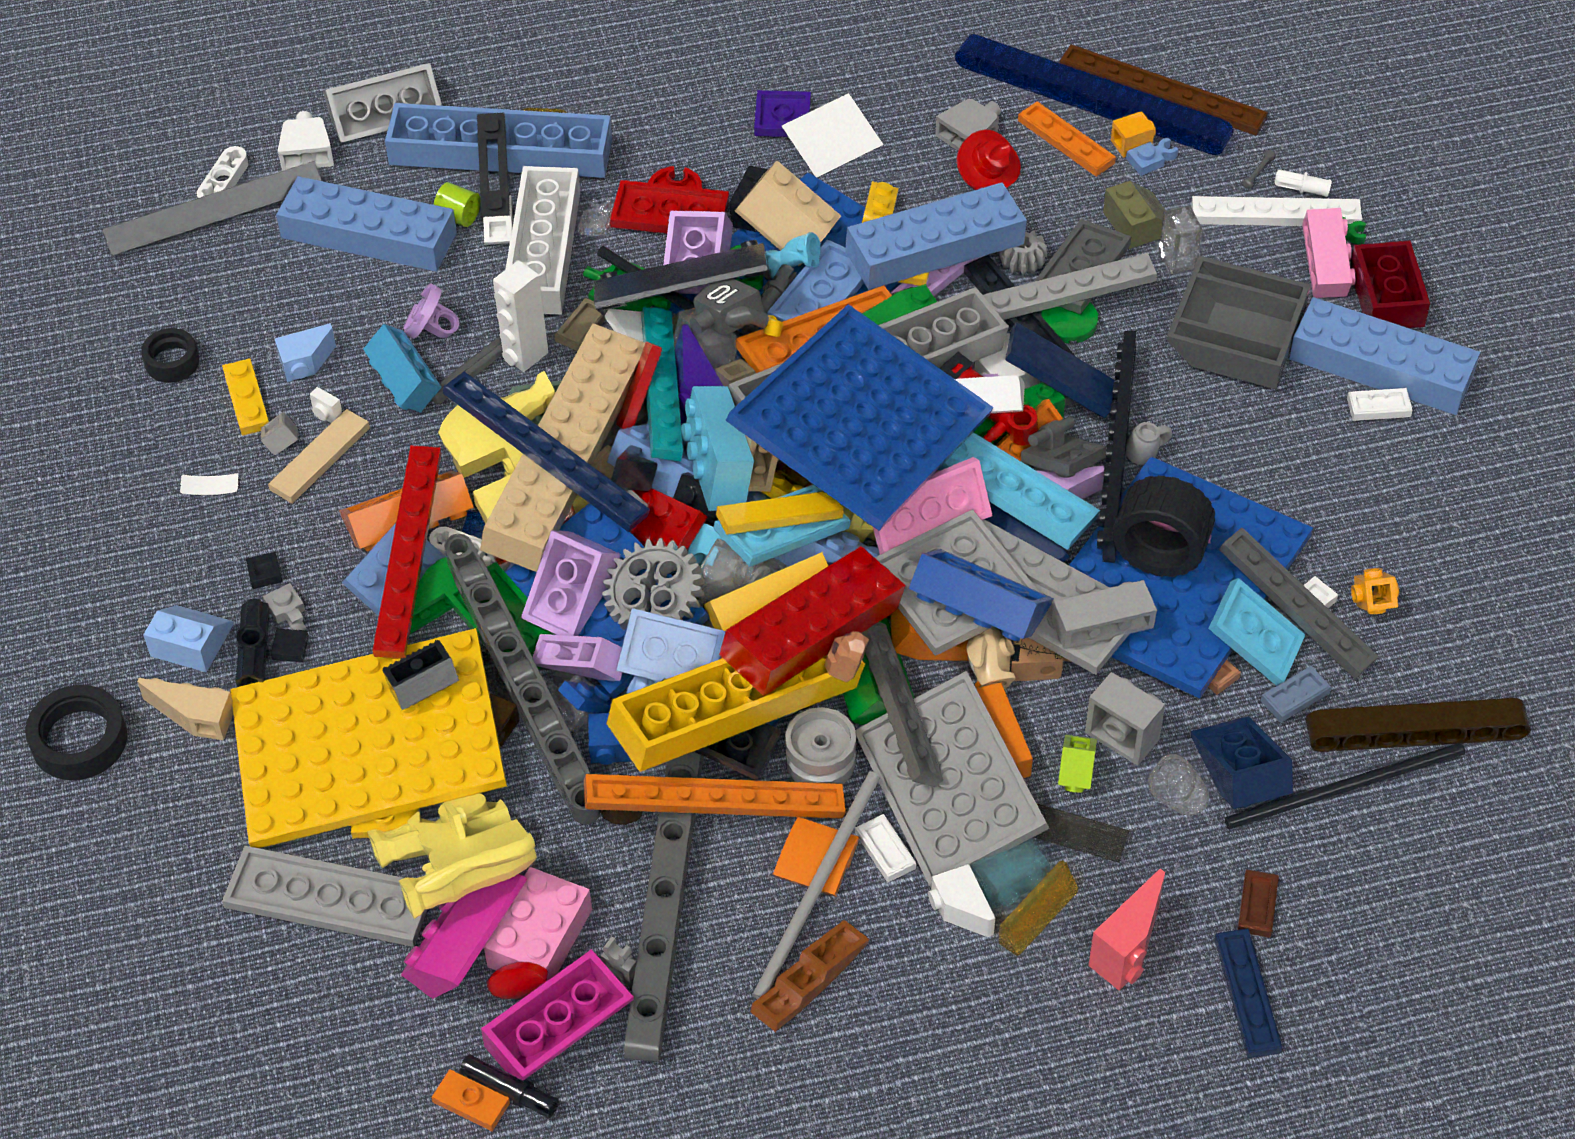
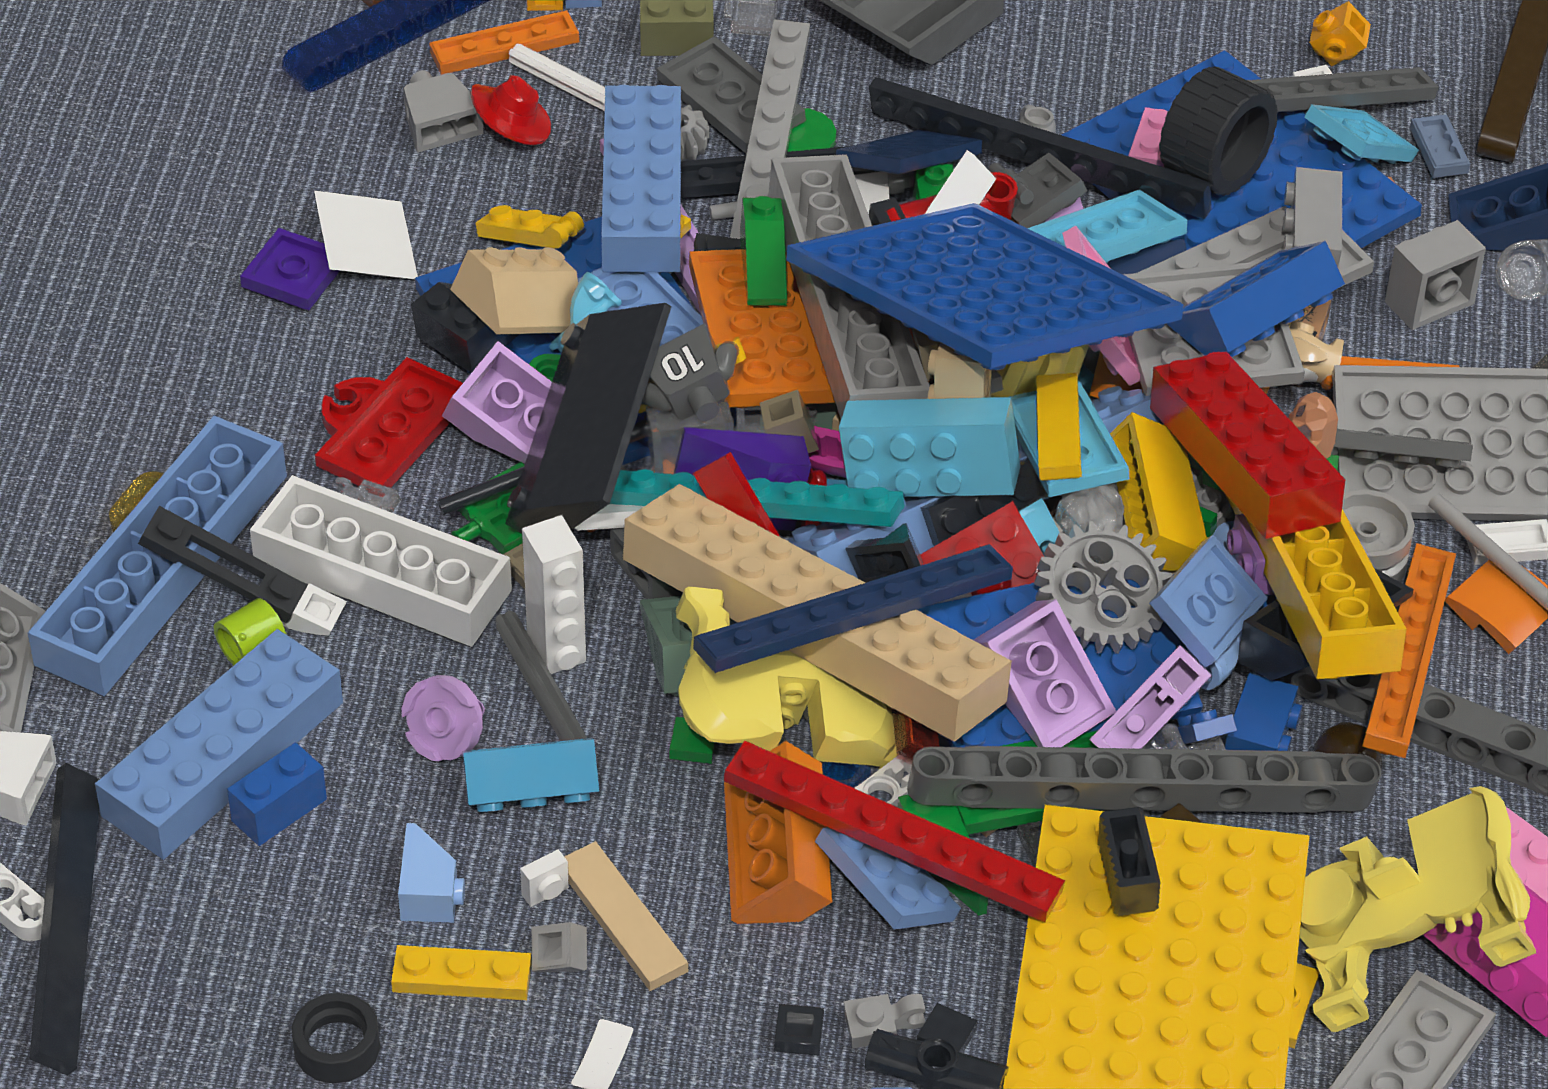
camera: 70 degrees left, 5 degrees down
(337, 262) = (277, 794): none -> blue brick
(1045, 188) = (558, 75): none -> white axle
(1077, 763) = (1464, 338): lime slope -> none

